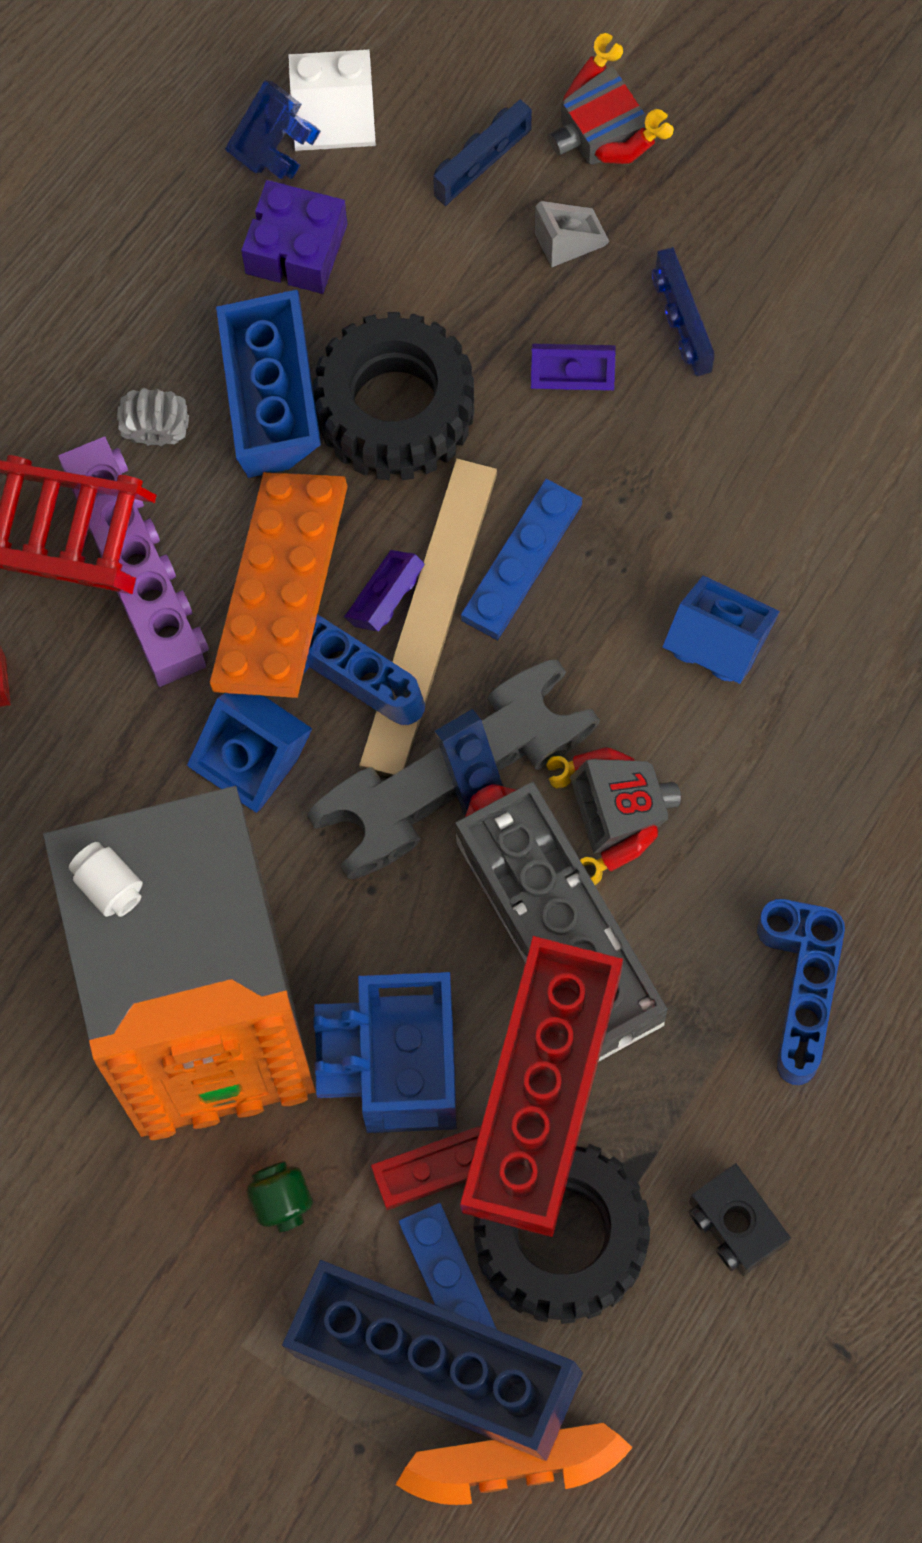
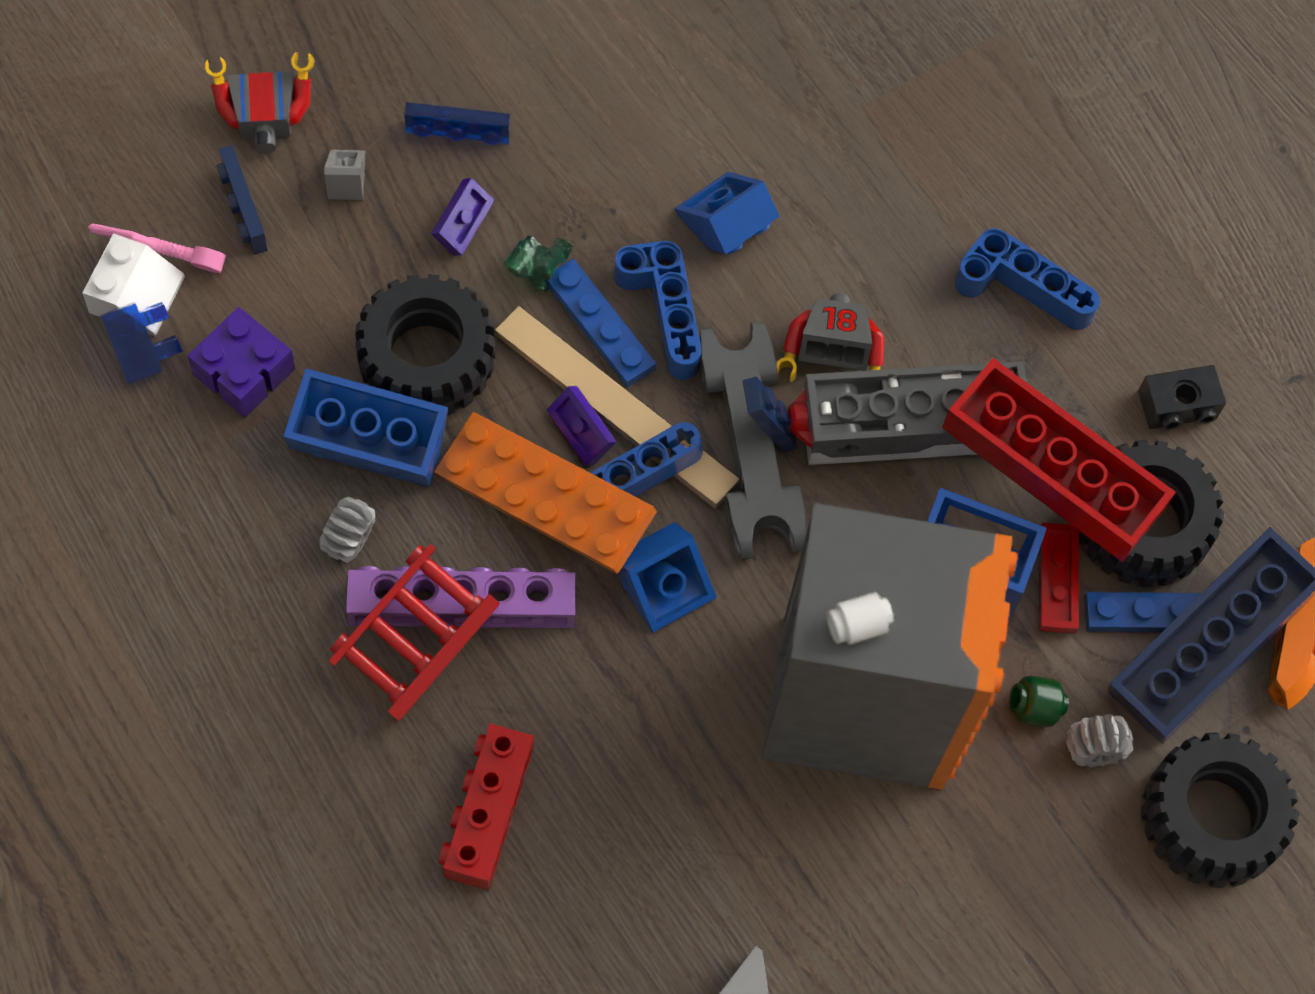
camera: 75 degrees left, 5 degrees down
(167, 1429) = (1246, 772): none -> black tyre
(255, 1278) = (1099, 740): none -> light grey gear
(394, 145) = (200, 257): none -> bright pink piece
(558, 459) = (536, 261): none -> clear green piece
(563, 616) = (668, 309): none -> blue beam

